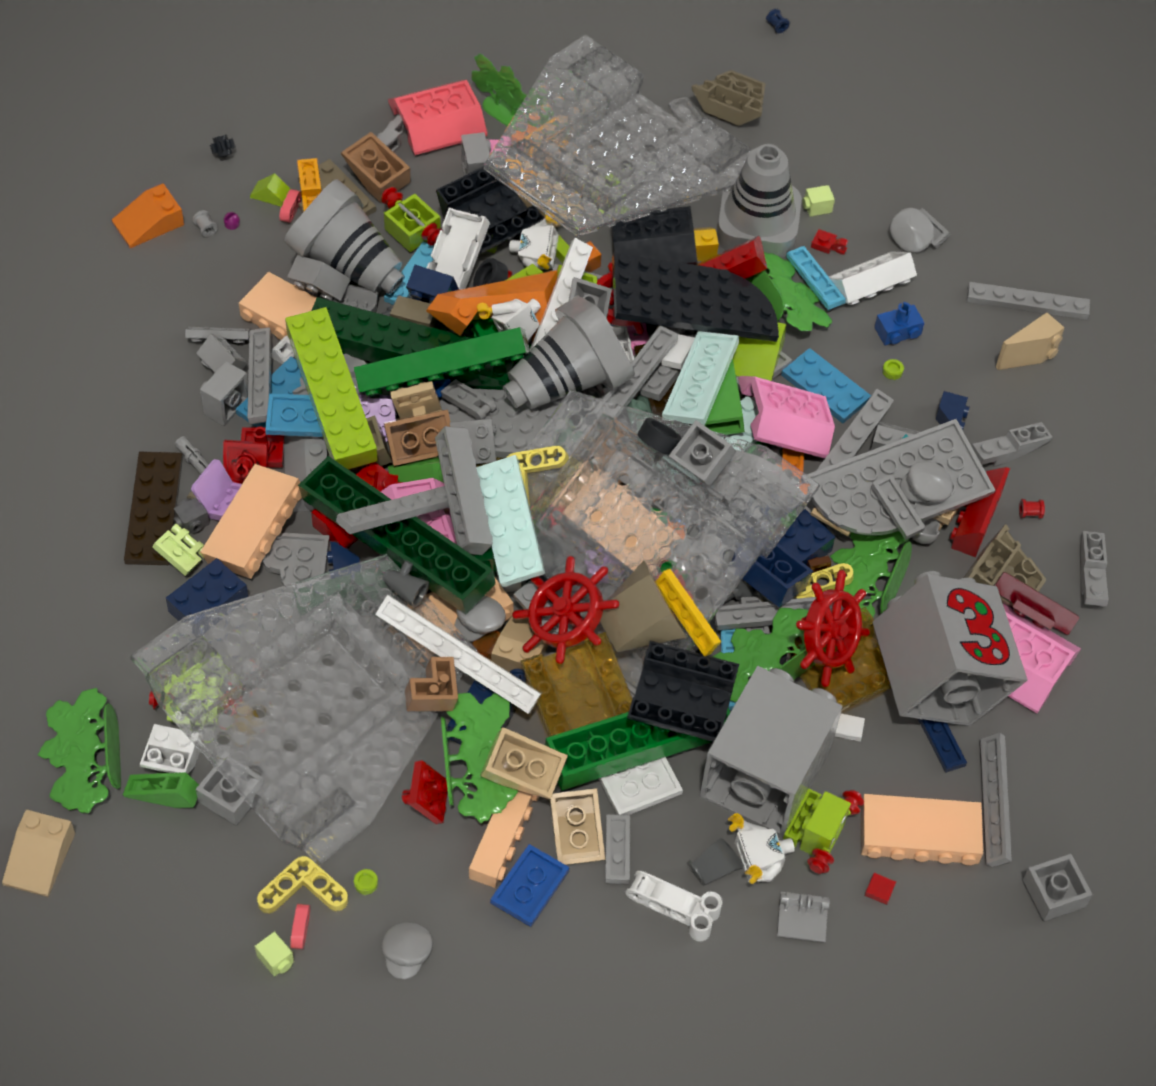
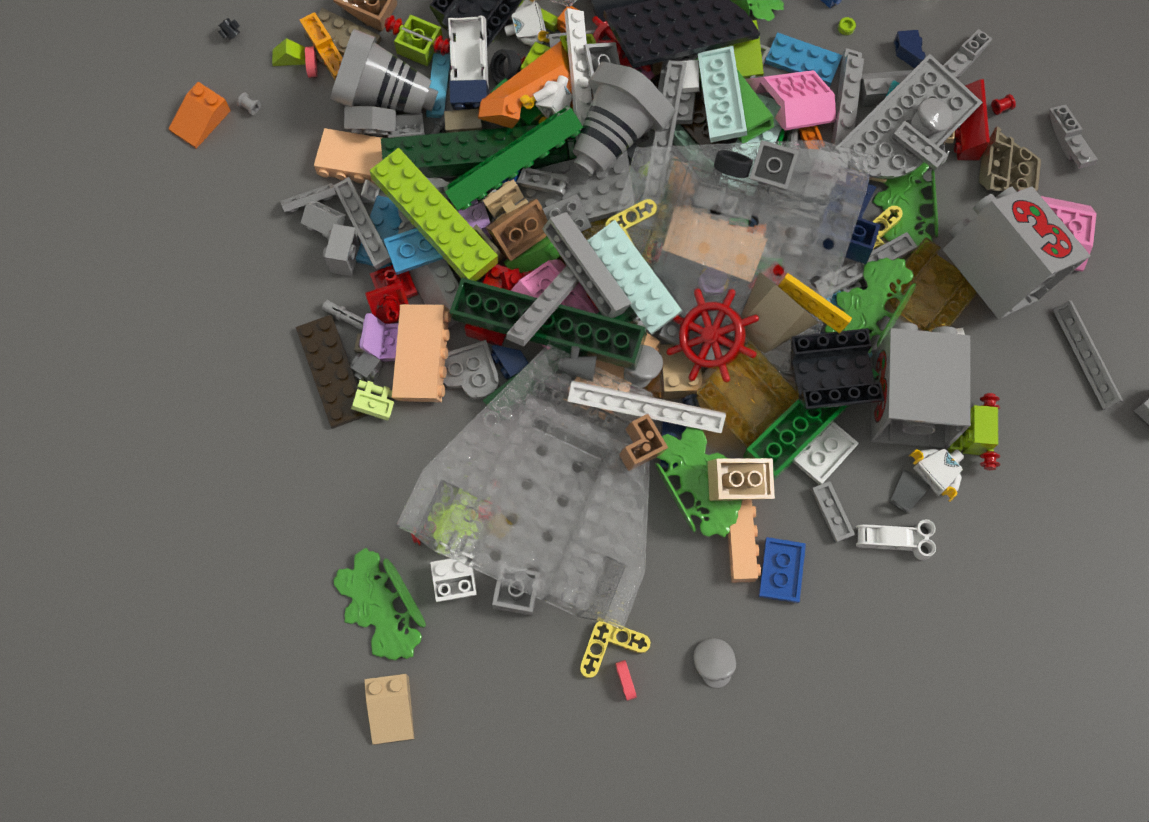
camera: 20 degrees left, 15 degrees up
(165, 789) = (461, 611): bright green slope -> none
(206, 590) = (415, 433): dark blue brick -> none
(231, 221) = (271, 93): magenta hinge -> none
(274, 954) = (618, 712): yellowish green brick -> none
(365, 881) = (655, 619): lime tile -> none
(427, 792) = (670, 528): red plate -> none
(577, 826) = (796, 506): tan slope -> none
(803, 916) = (992, 508): light grey hinge -> none
(819, 563) = (872, 214): reddish brown plate -> none
(829, 628) = (921, 269): red piece -> none
(880, 888) = (1037, 461): red tile -> none
(921, 829) = (1047, 402): light nougat brick -> none
(944, 744) = (1029, 326): dark blue tile -> none
(1035, 605) = (1046, 184): dark red bracket -> none

